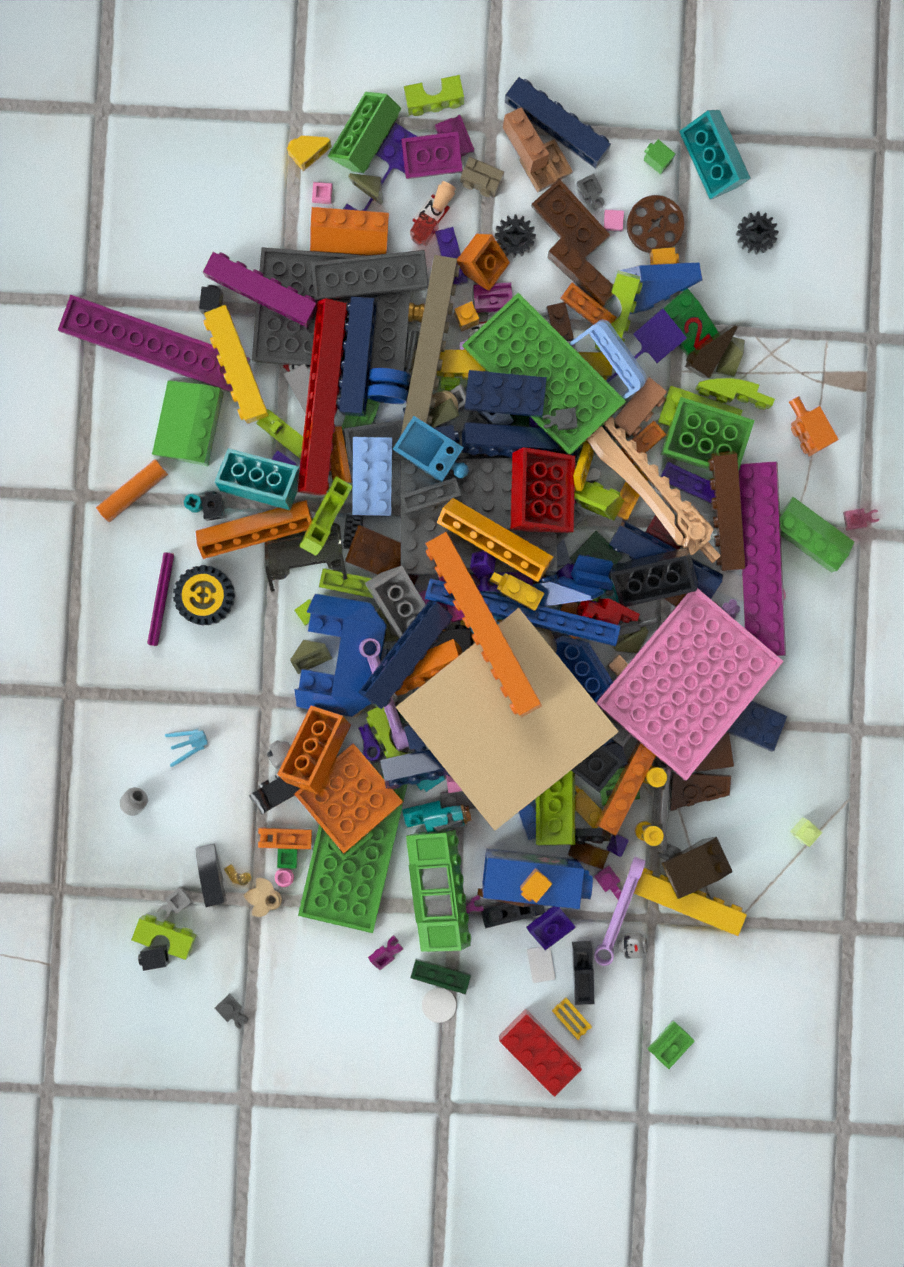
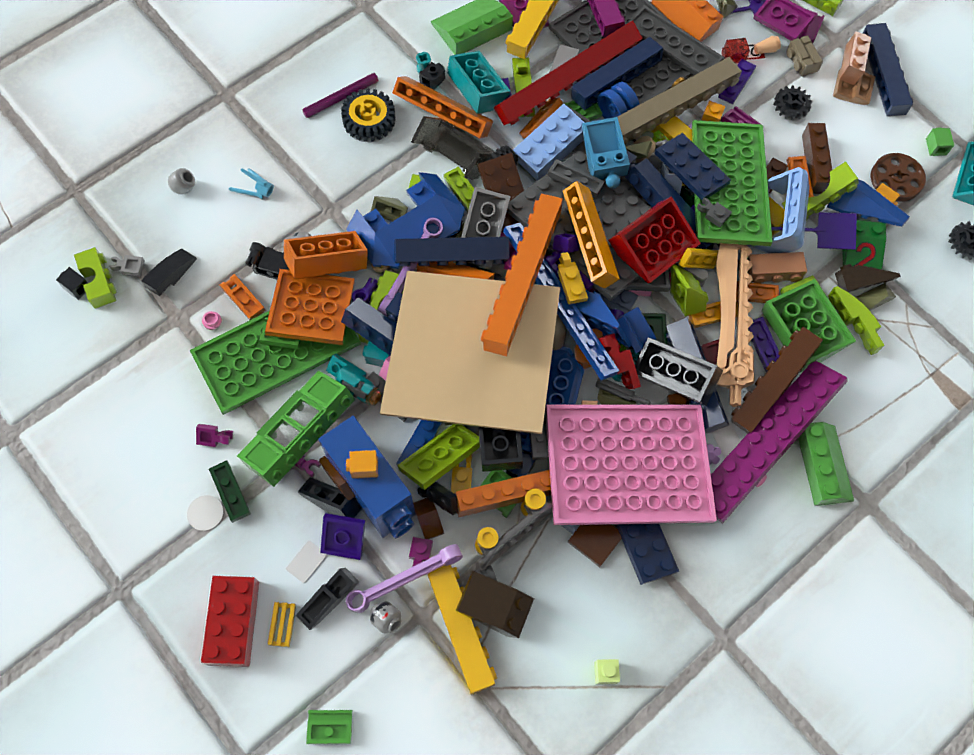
camera: 40 degrees right, 20 degrees down
(131, 490) = (395, 27): orange brick -> none
(229, 1009) = (73, 366): dark grey plate -> none
(237, 878) = (183, 290): clear yellow arm -> none
(260, 897) = (182, 318): tan plate -> none
(287, 858) = (228, 310): green plate -> none
(325, 515) = (478, 135): lime arch -> none
(483, 260) = (757, 96): orange slope -> none
(570, 219) = (842, 126): reddish brown plate -> none
(591, 189) = (871, 121): dark grey plate -> none
(613, 220) = (870, 151): bright pink tile -> none
(617, 844) = (455, 532): dark purple slope -> none
(697, 789) = (555, 552): reddish brown wing -> none
(811, 428) = (894, 389): orange brick -> none
(858, 519) = (872, 486): clear pink plate -> none

